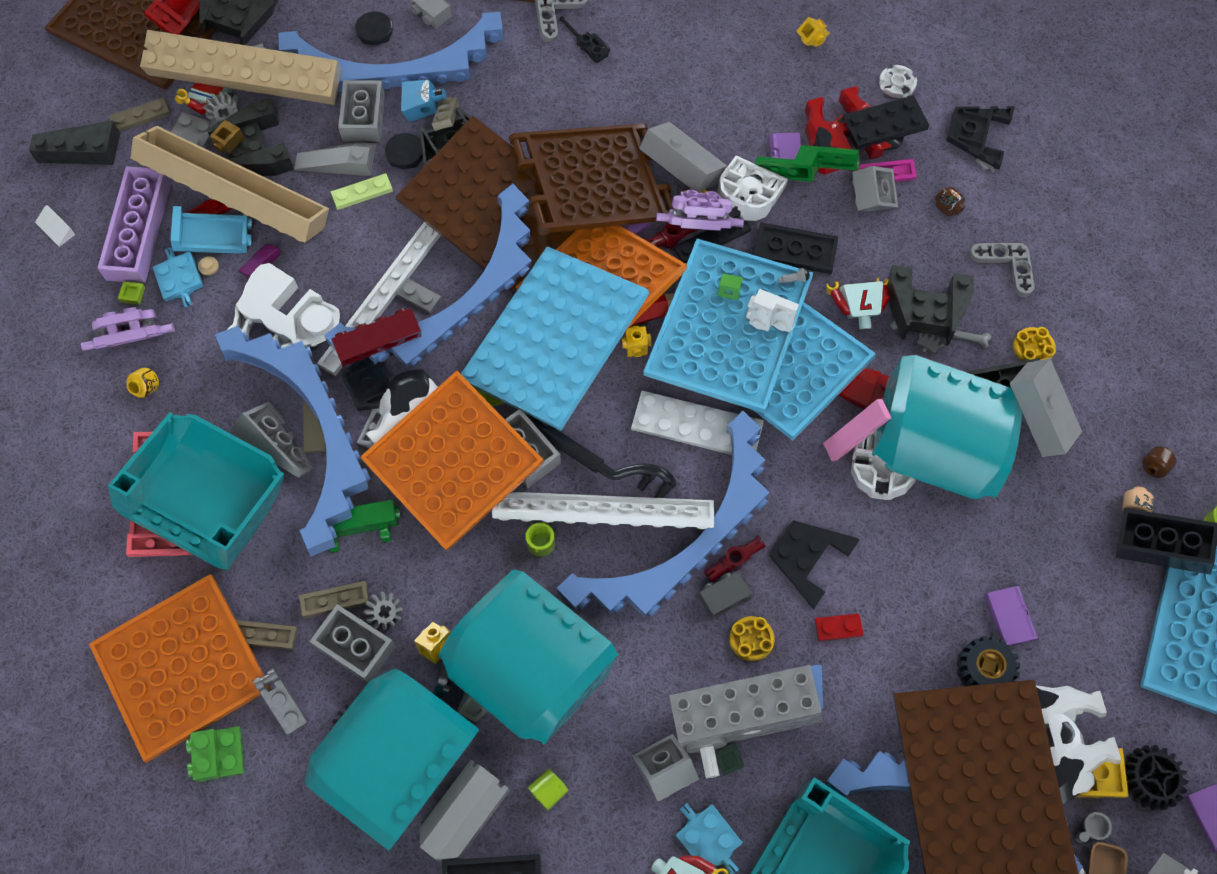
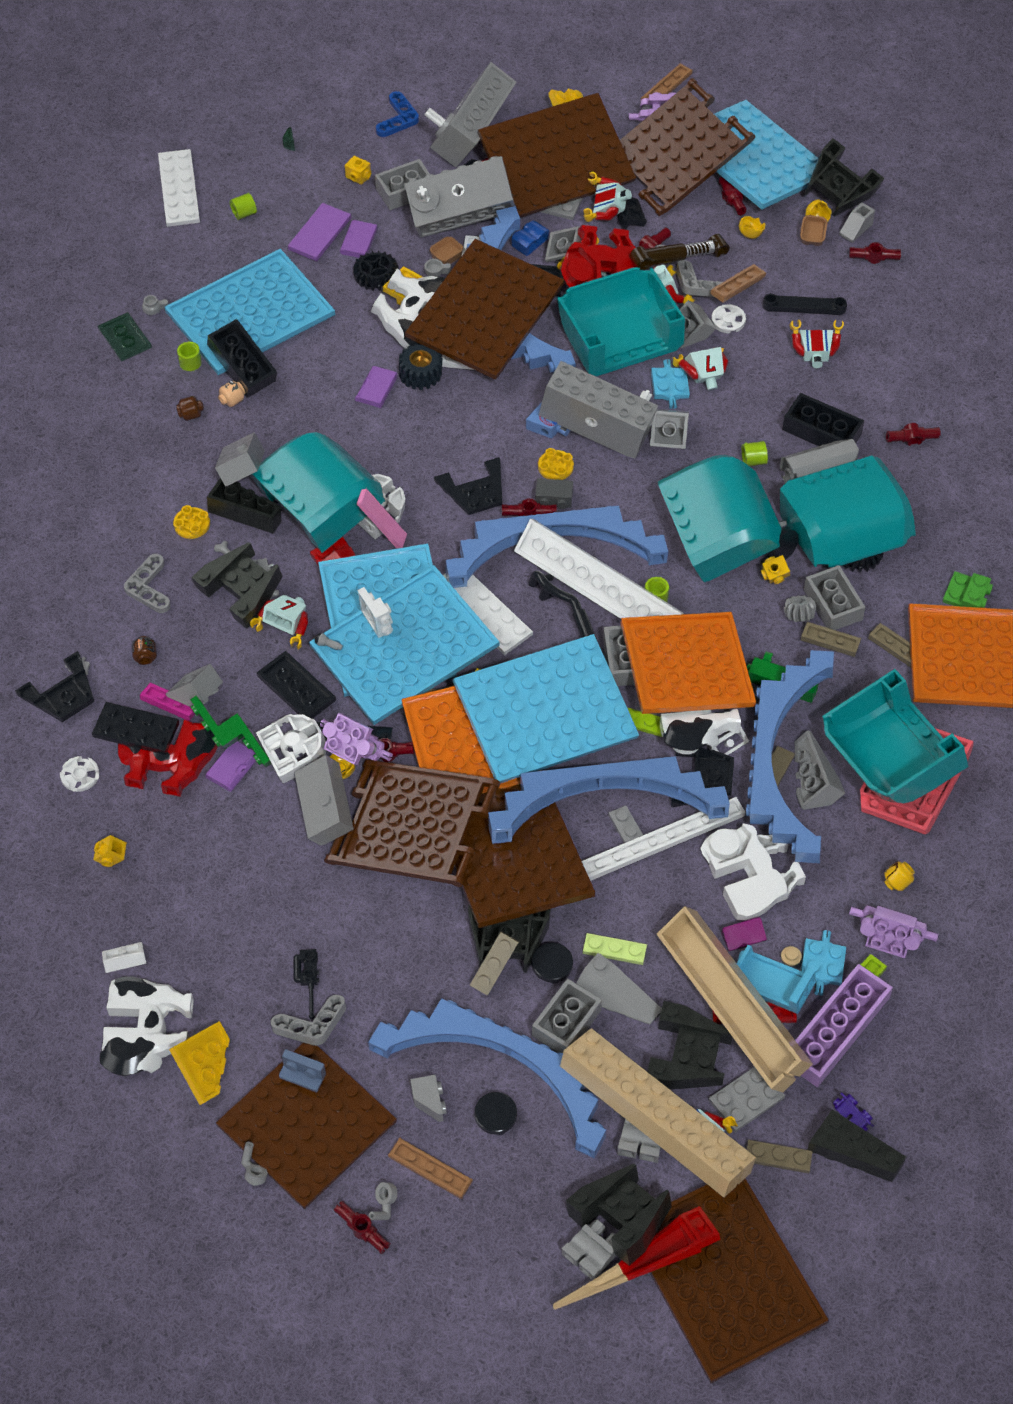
camera: 145 degrees left, 10 degrees down
(54, 226) = (914, 1079): white slope -> none
(91, 175) = (848, 1106): none -> dark purple hinge
(220, 107) = (699, 1097): light grey gear -> none
(226, 137) = (711, 1040): pearl gold brick -> none
(280, 701) = (905, 591): flat silver plate -> none
(376, 337) = (688, 773): dark red brick -> none
(420, 99) = (504, 999): dark azure torso -> none
(730, 283) = (383, 654): bright green piece -> none
(839, 627) = (492, 440): red plate -> none

